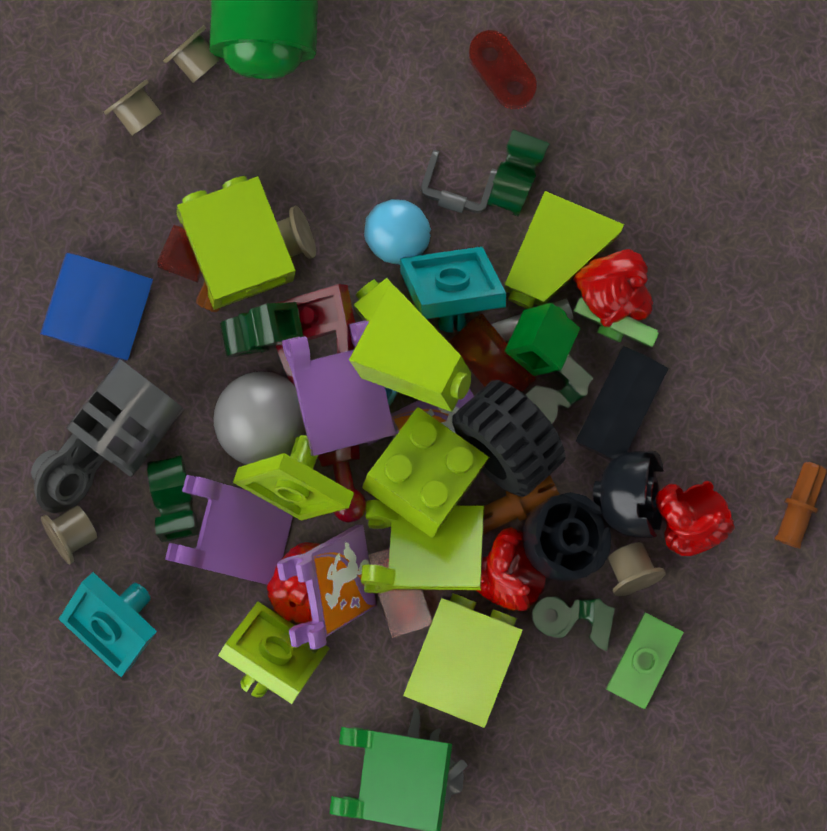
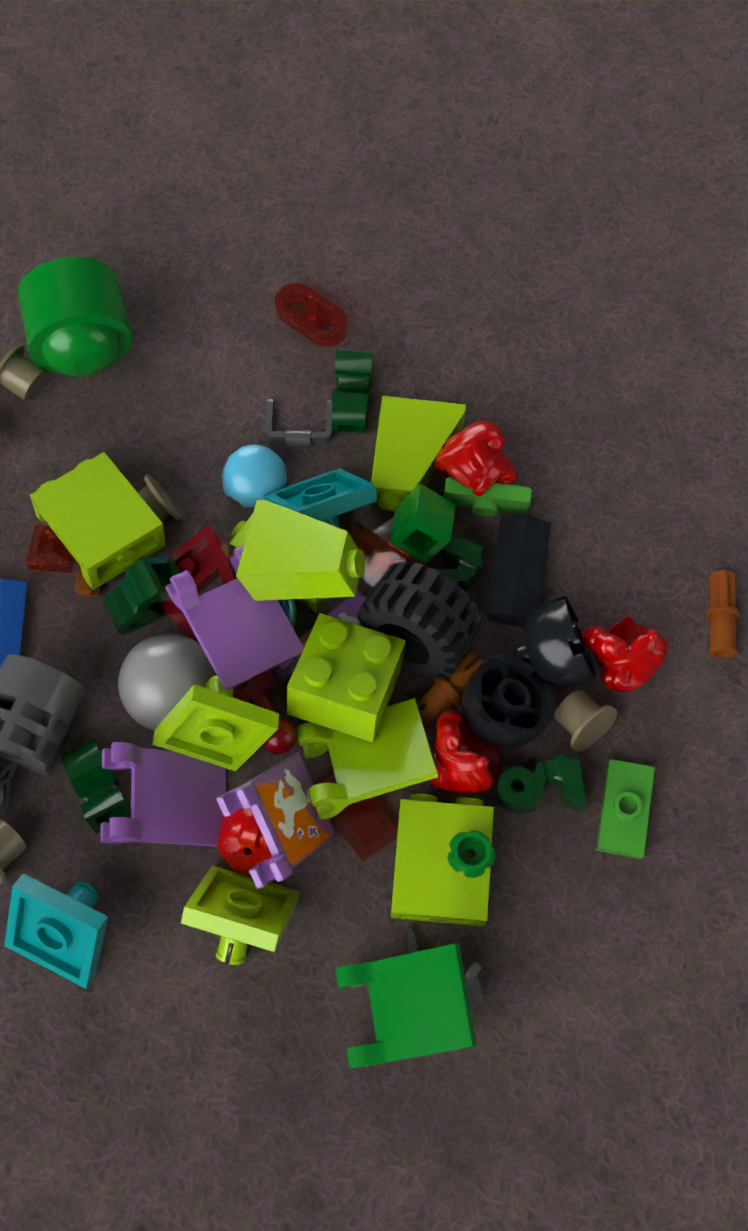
camera: 15 degrees left, 15 degrees down
(499, 671) = (474, 841): none -> green plate

